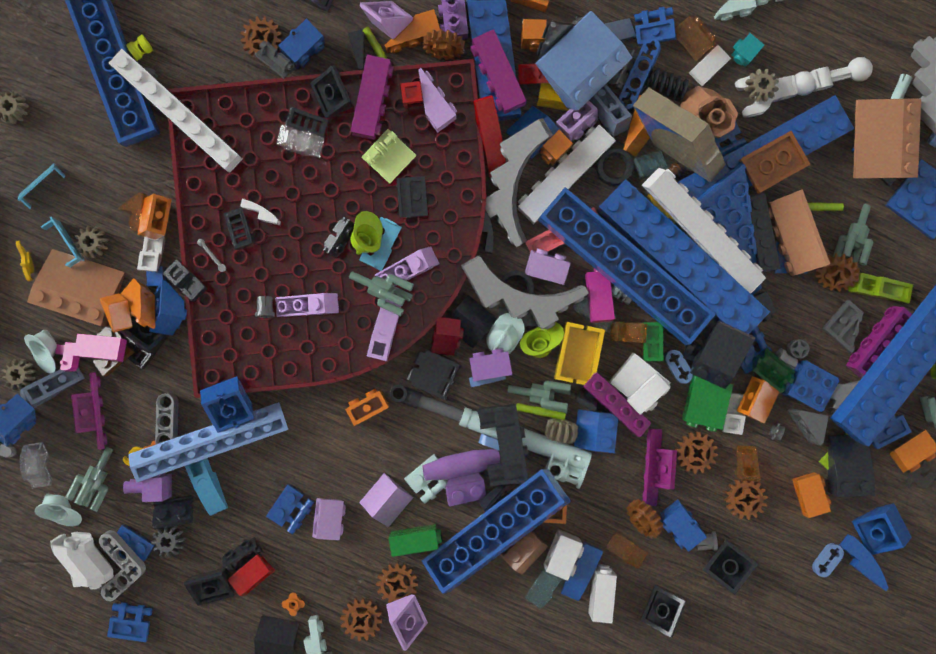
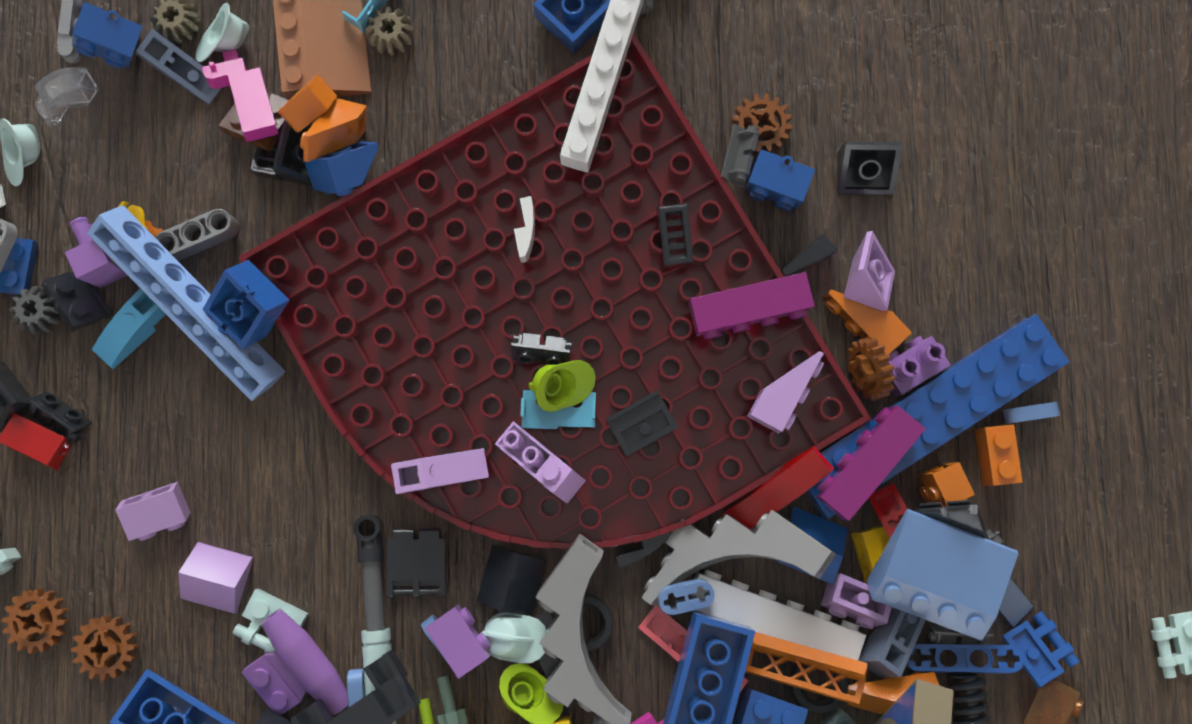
camera: 70 degrees right, 5 degrees down
(87, 412) = (164, 127): magenta bracket -> none
(91, 482) = (70, 175): sand green plant -> none
(135, 206) = (464, 69): clear orange slope -> none
(151, 254) = (410, 114): white slope -> none
(154, 216) = (458, 95): orange brick -> none
(155, 278) = (384, 134): blue slope -> none
(185, 280) = (389, 172): black slope -> none
(221, 267) = (429, 212): light grey hinge -> none
(245, 243) = (490, 225): black slope -> none
(264, 307) = (395, 296): dark grey bush -> none
(285, 505) = (149, 443): blue plate -> none
(293, 598) = (28, 517): orange plate -> none
(300, 142) = (645, 237): clear brick -> none
(307, 304) = (428, 350): lavender slope -> none
(331, 93) = (731, 248): black slope -> none
(362, 410) = (329, 494): orange brick -> none
(374, 43) = (825, 277): lime piece -> none
(386, 290) = (495, 446): sand green plant -> none
(389, 156) = (683, 365): yellowish green hinge -> none
(406, 619) = (56, 685): lavender slope -> none
(411, 93) = (782, 356): red panel -> none
(415, 540) = (172, 646): green brick -> none
(446, 336) = (474, 558): dark red brick -> none
(522, 218) = (687, 603): none -> medium blue beam
(547, 266) = (635, 654): lavender brick -> none
(555, 148) = (803, 589): orange brick -> none
(596, 163) = (809, 657): none -> orange fence

